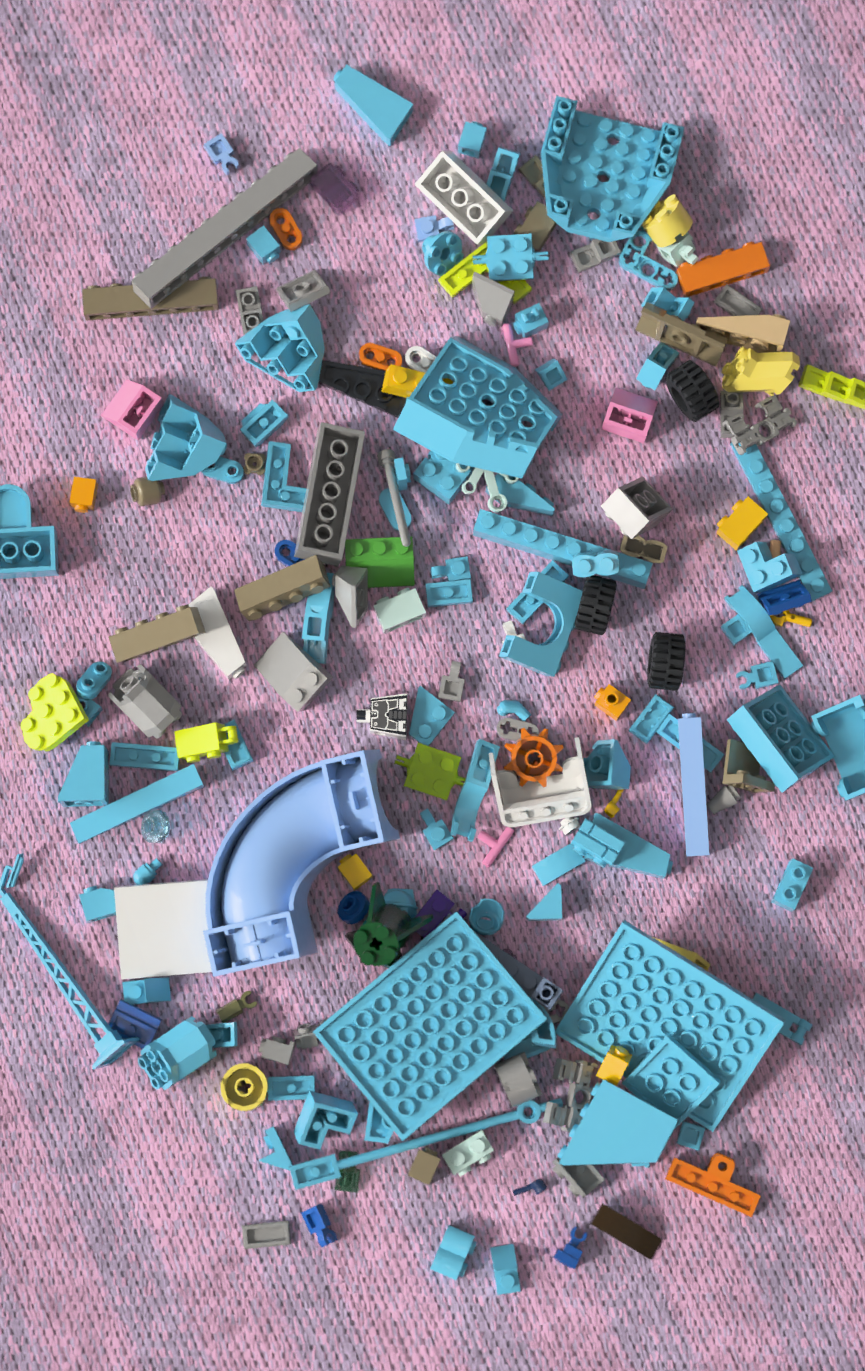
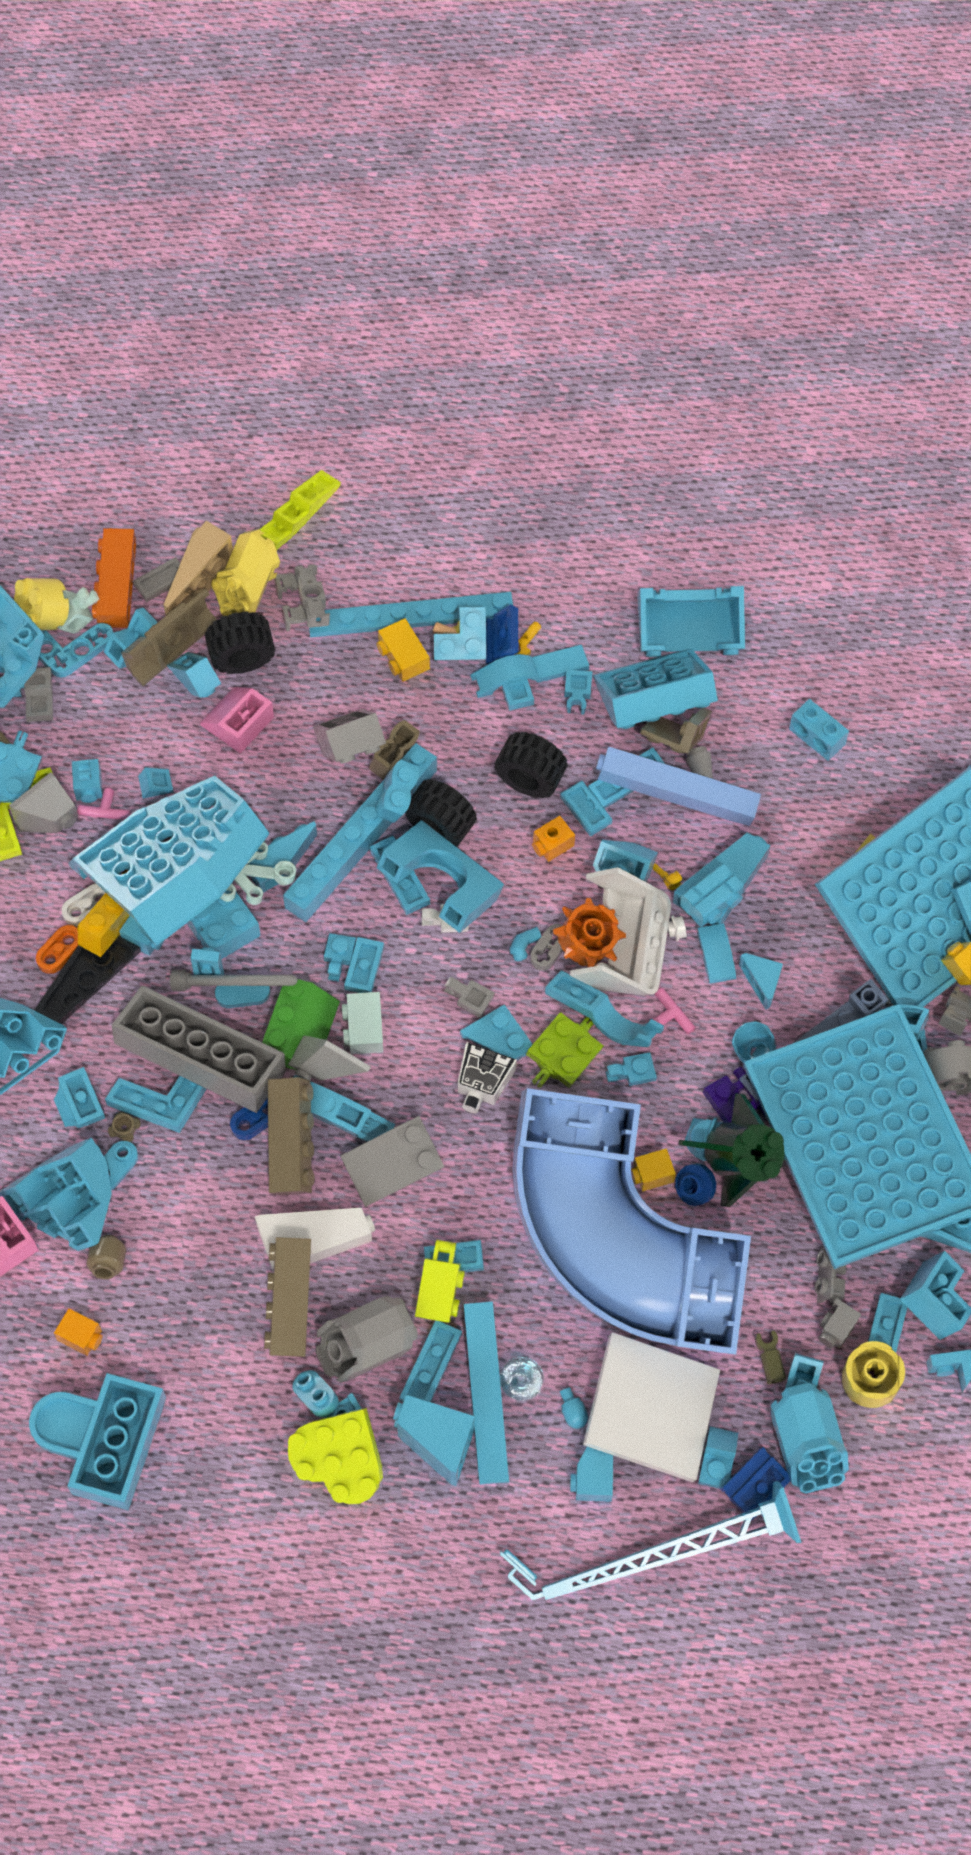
camera: 70 degrees left, 15 degrees down
(730, 405) = (277, 625): light grey slope -> none

